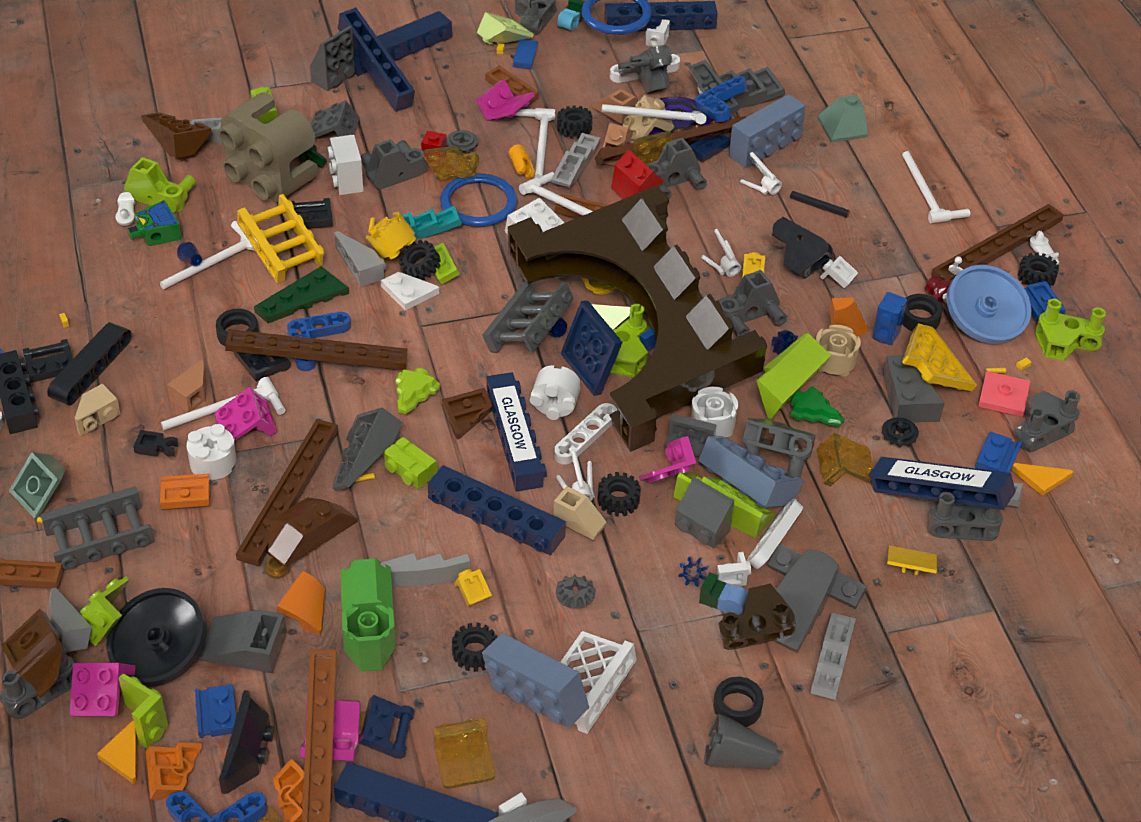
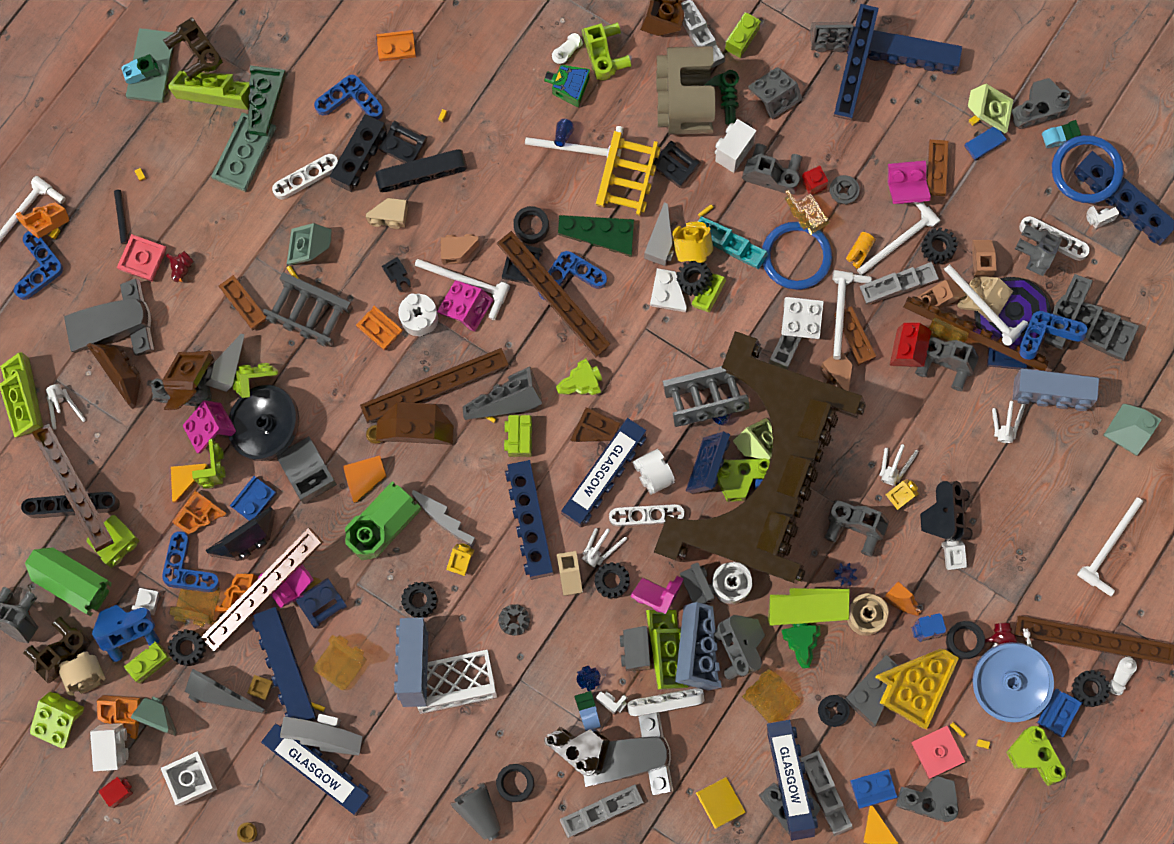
camera: 55 degrees right, 30 degrees up
(819, 204) = (1020, 483): black bar -> none

